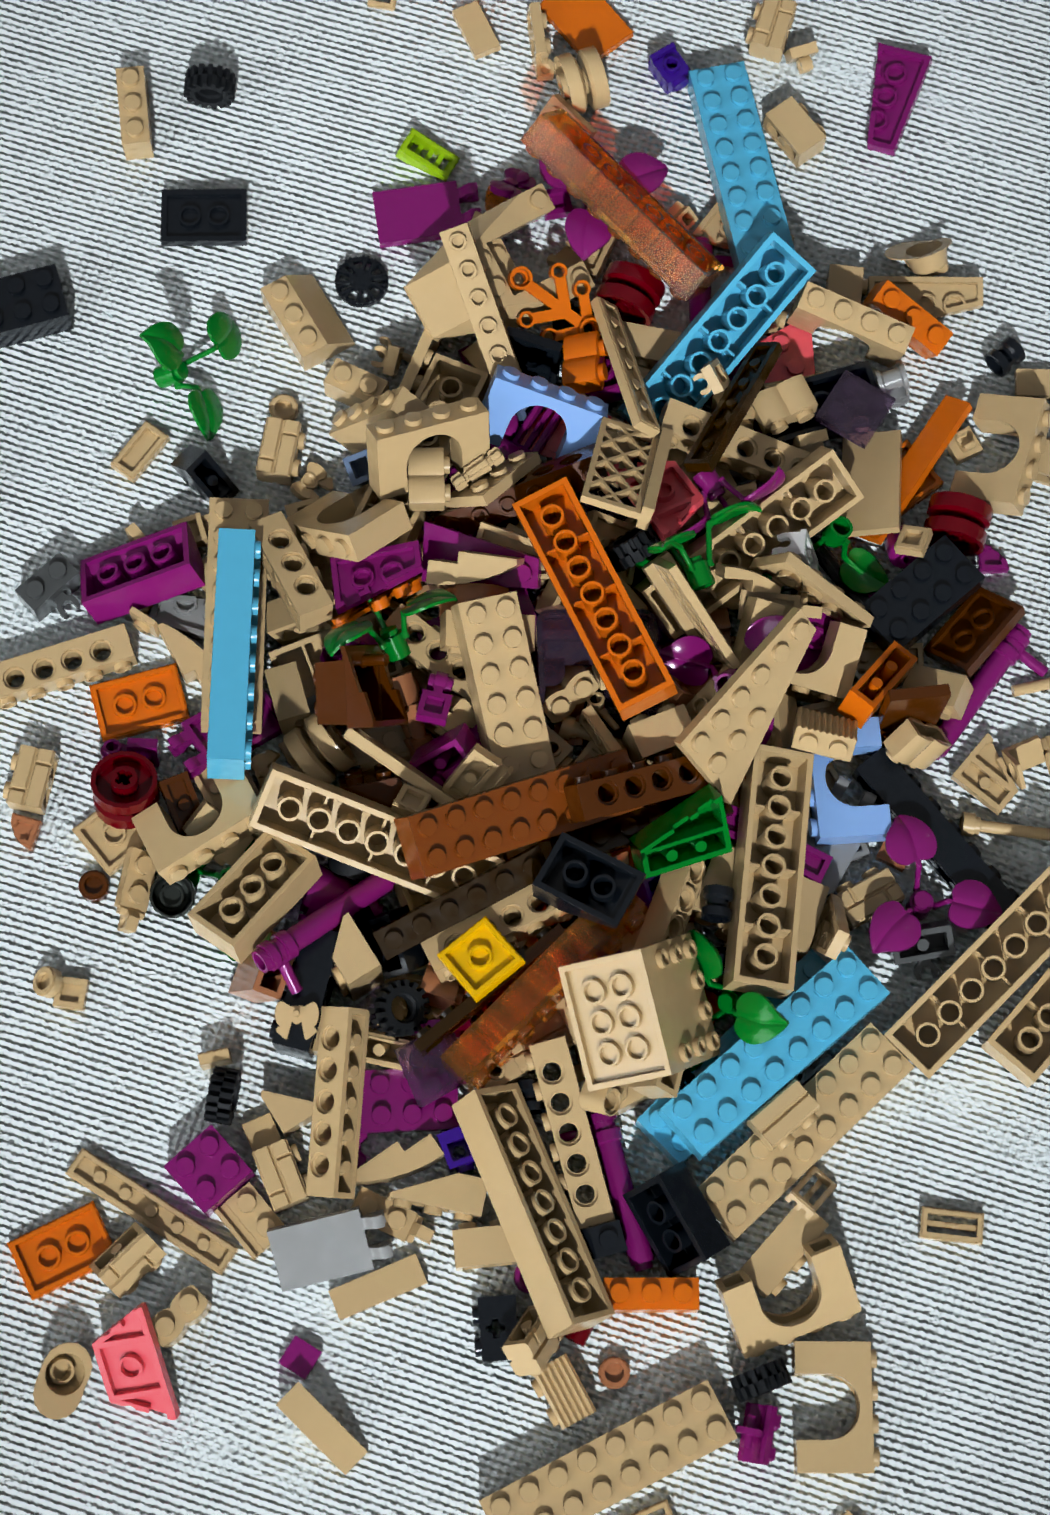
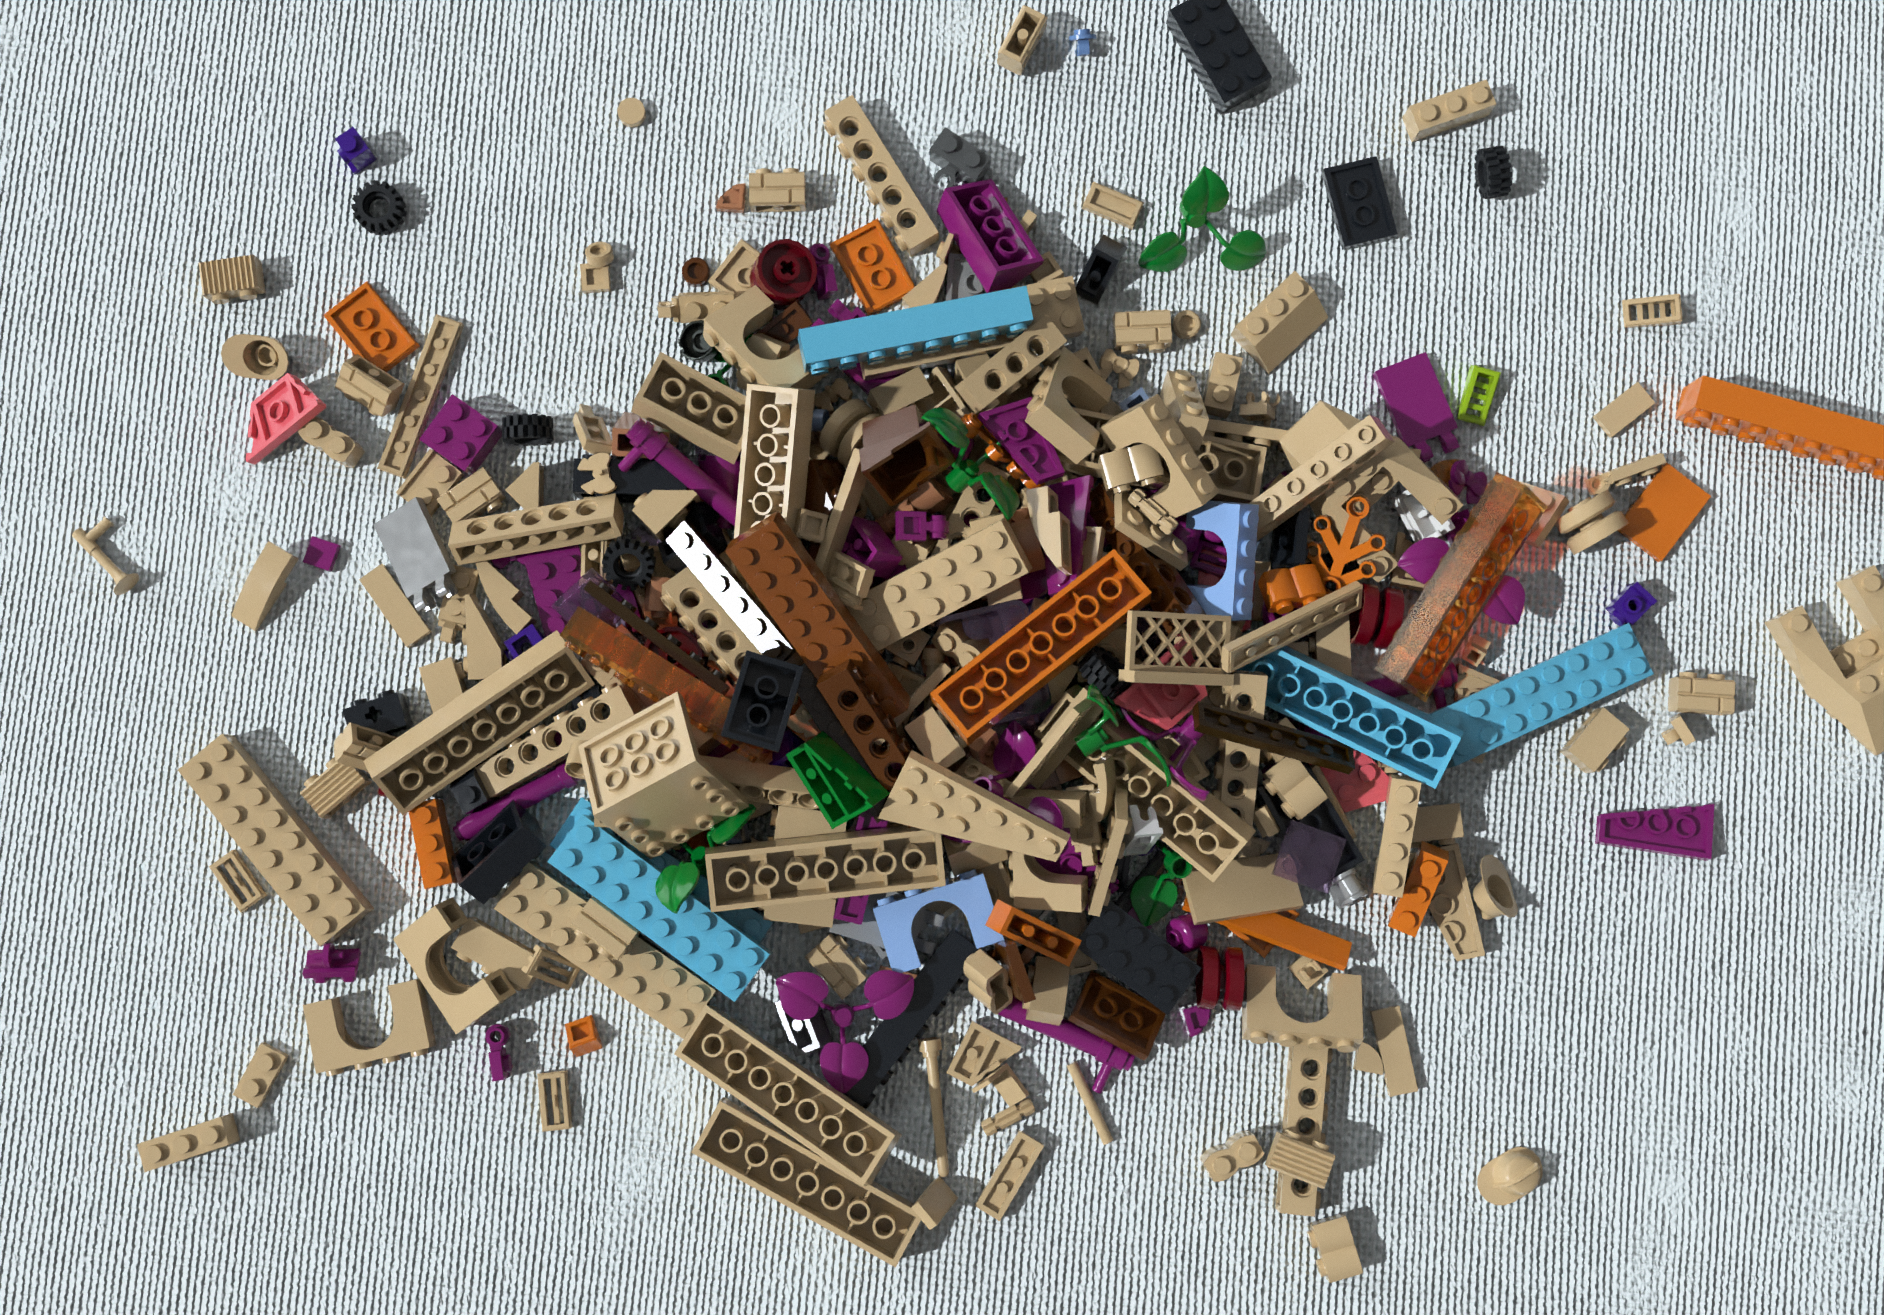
camera: 75 degrees right, 10 degrees up
(214, 1058) = (562, 415): tan tile -> none
(243, 1023) = (592, 431): none -> tan hinge
(261, 1132) = (506, 471): tan tile -> none
(361, 281) = (1332, 364): black wheel -> none
(481, 959) = (678, 622): yellow plate -> none
(539, 235) = (1418, 519): none -> white hinge
(614, 1372) = (364, 827): nougat tile -> none
(714, 375) = (1302, 714): tan tile -> none
(717, 903) = (782, 825): black wheel -> none
(760, 1380) = (376, 956): black tyre -> none
(824, 734) = (967, 892): tan brick -> none
(832, 929) = (787, 937): tan wing -> none
(888, 1180) = (583, 1036): none -> orange slope
(900, 1271) = (500, 1062): none -> magenta plate
(913, 541) = (1187, 939): tan tile -> none
(1005, 356) = (1408, 992): black wheel -> none

